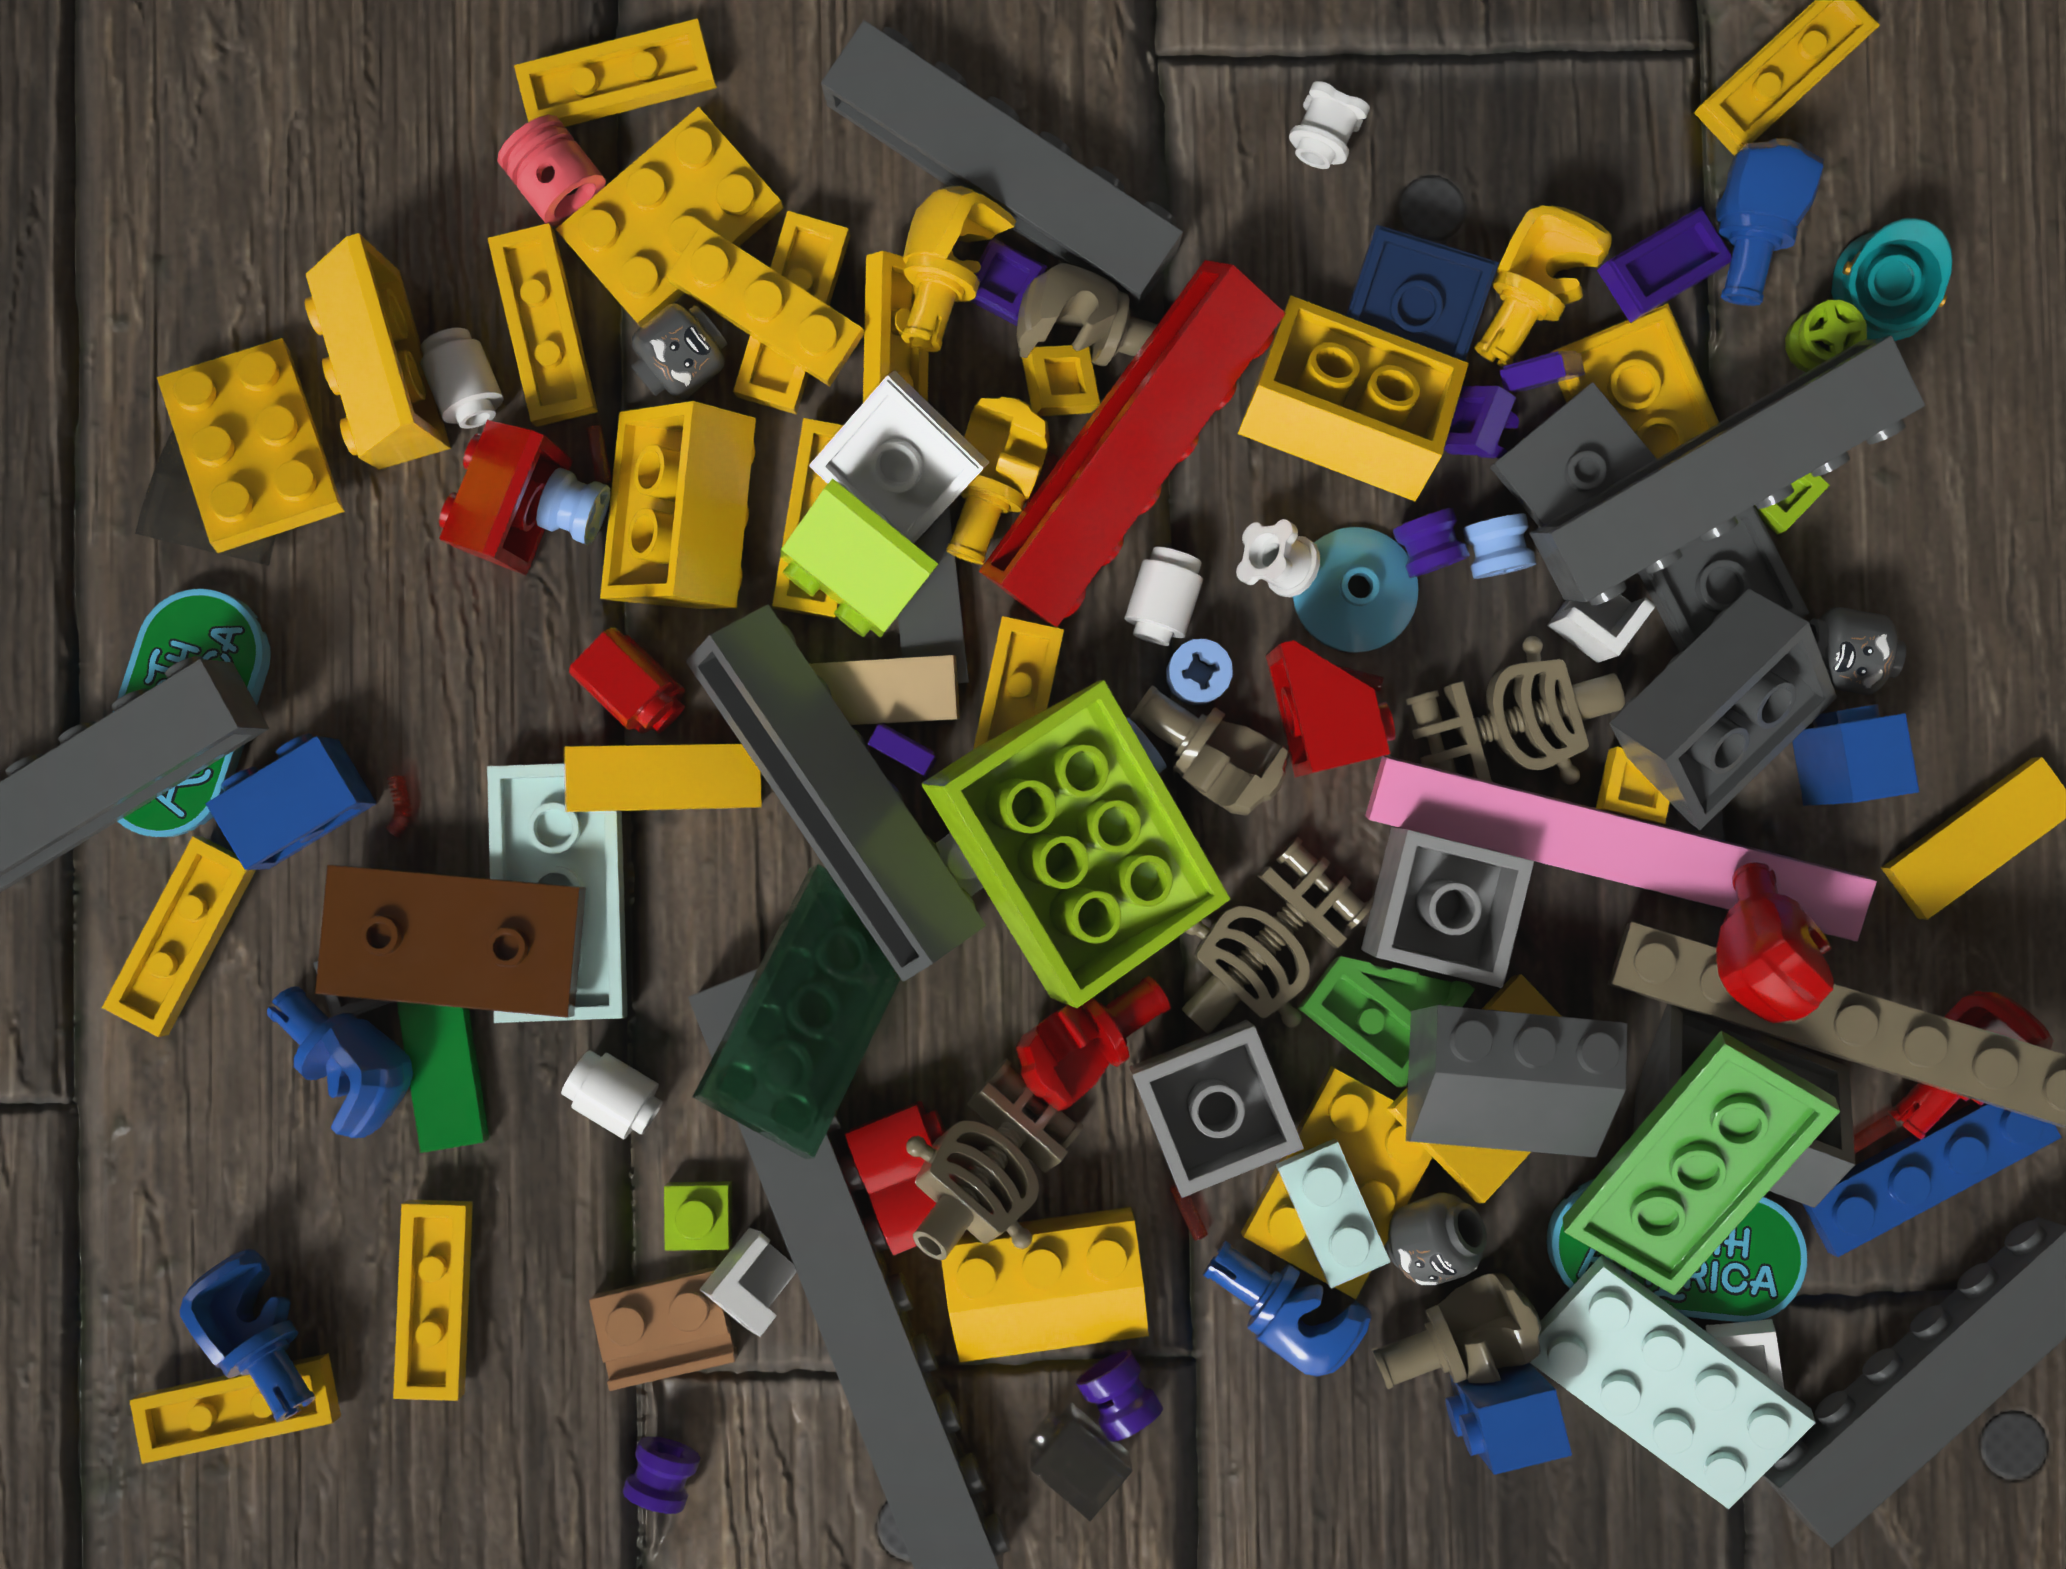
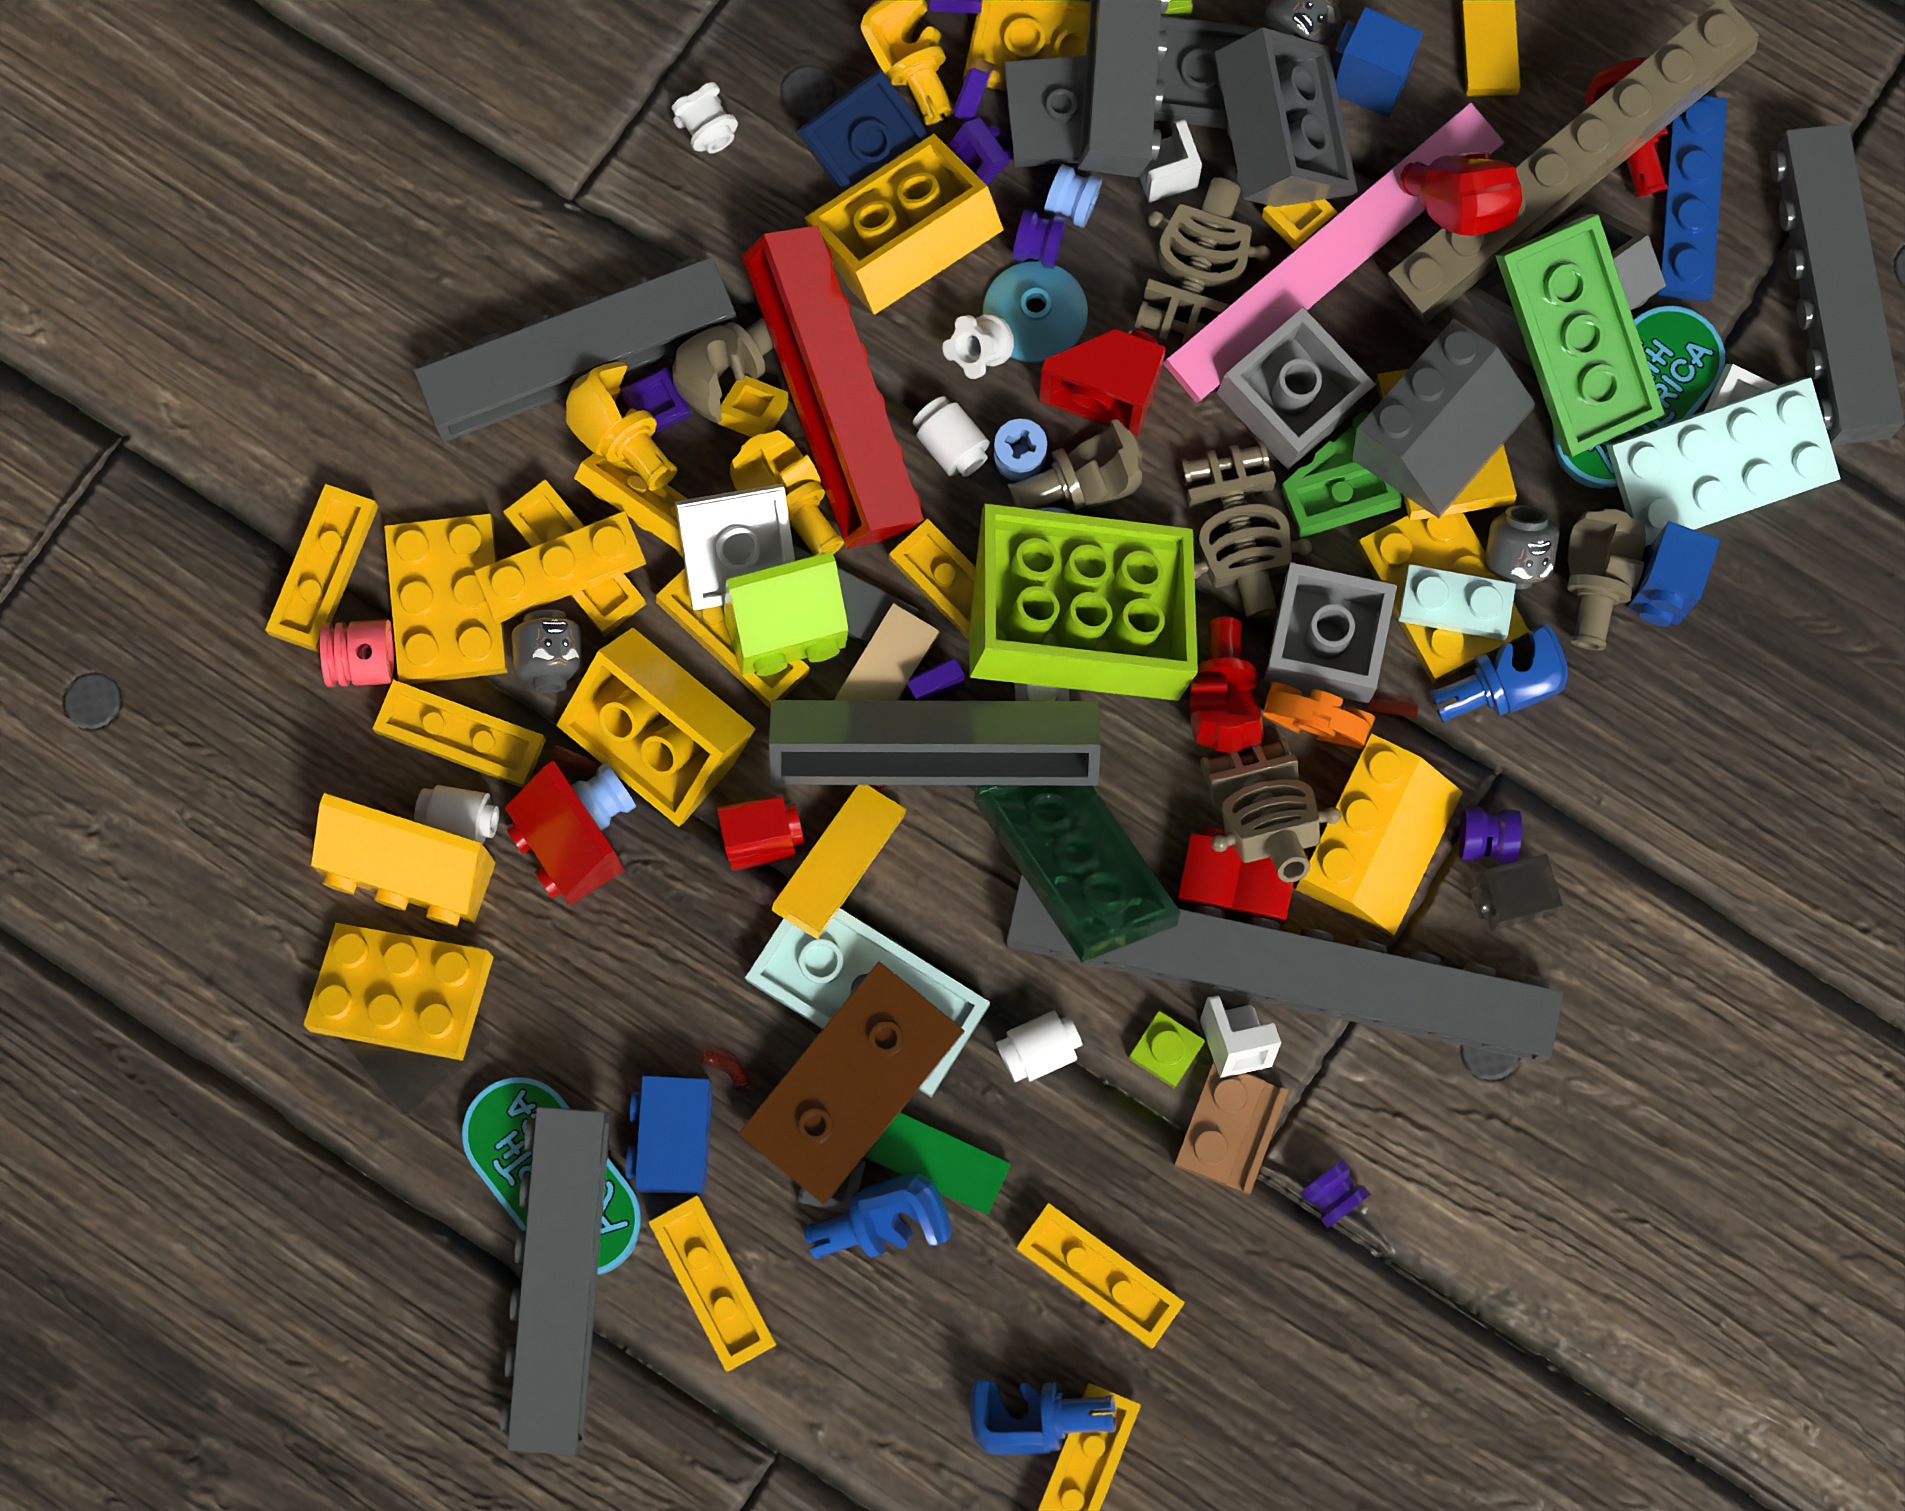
camera: 50 degrees left, 10 degrees down
(1119, 1148) = (1318, 715): none -> orange plate
(1873, 1132) = (1644, 216): clear red piece -> none

